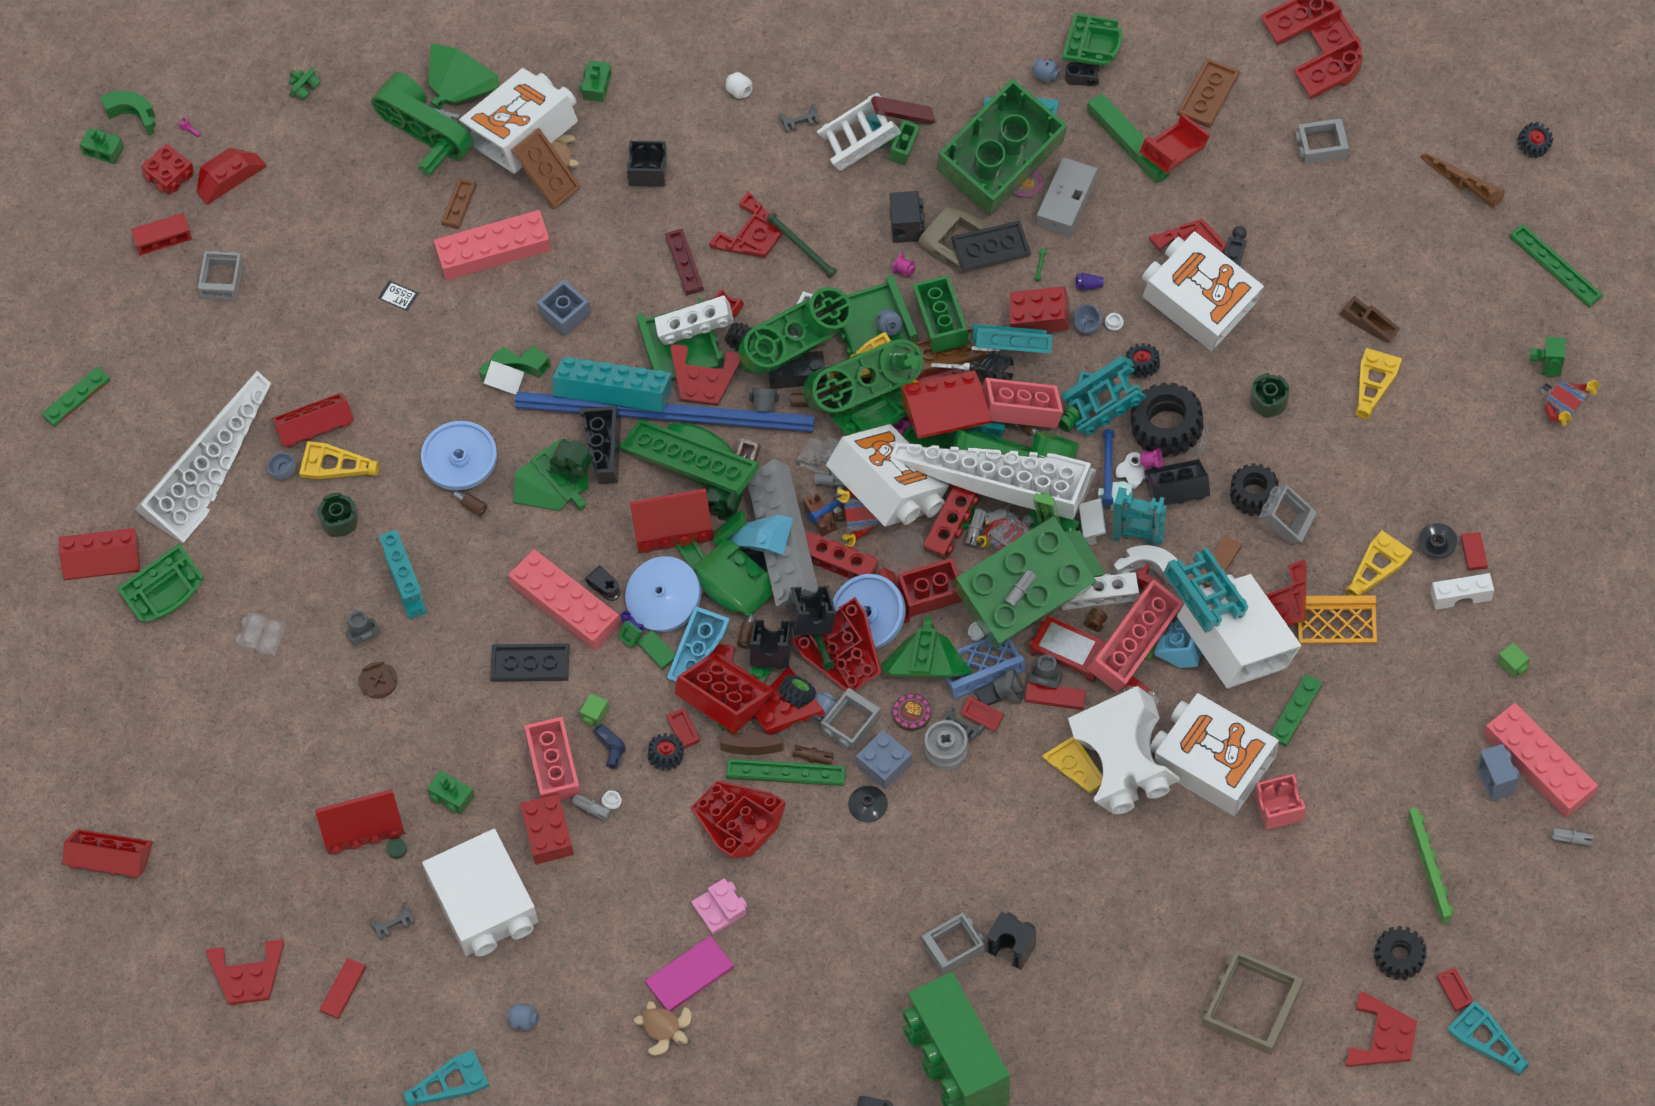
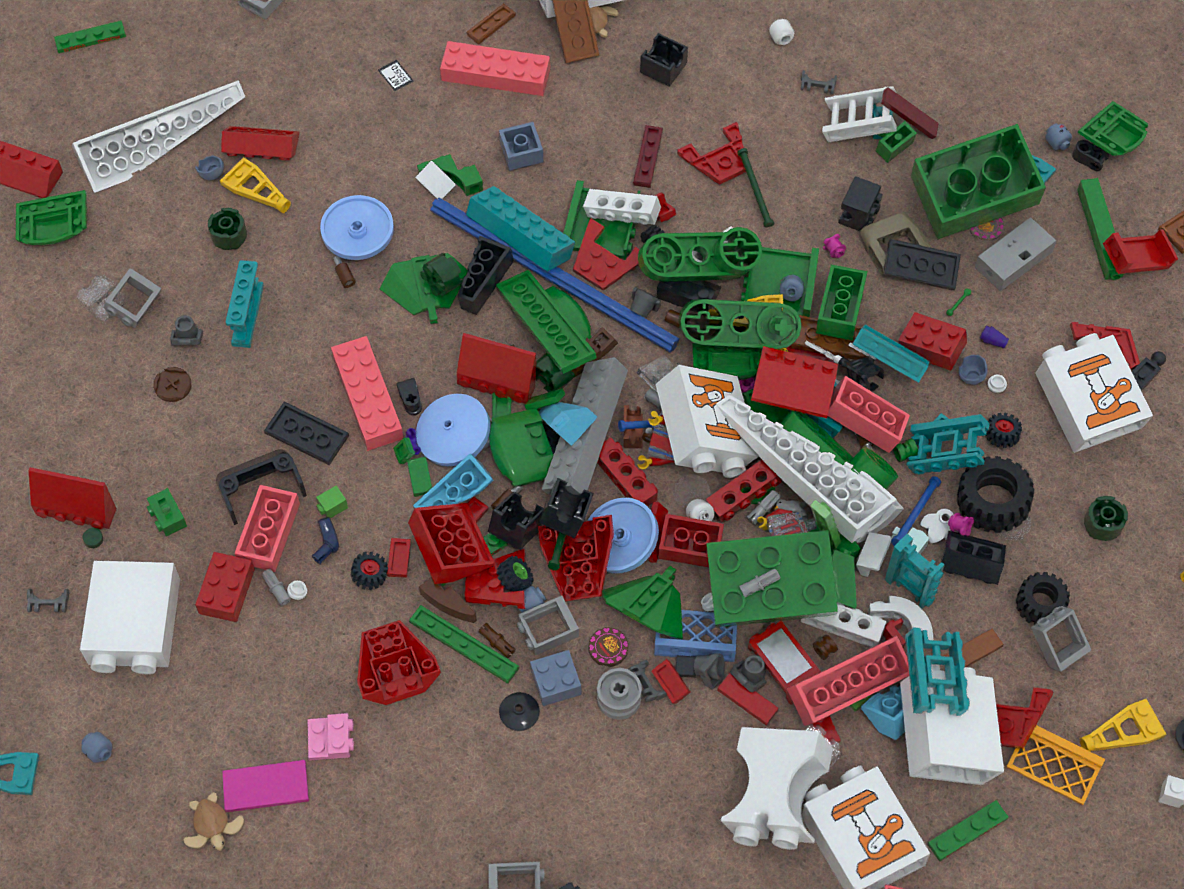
camera: 25 degrees right, 0 degrees up
(295, 604) = (141, 284): none -> light grey window
(492, 736) = (230, 479): none -> black windscreen
(923, 556) = (700, 510): none -> white head
(1076, 764) = (728, 772): yellow wing -> none

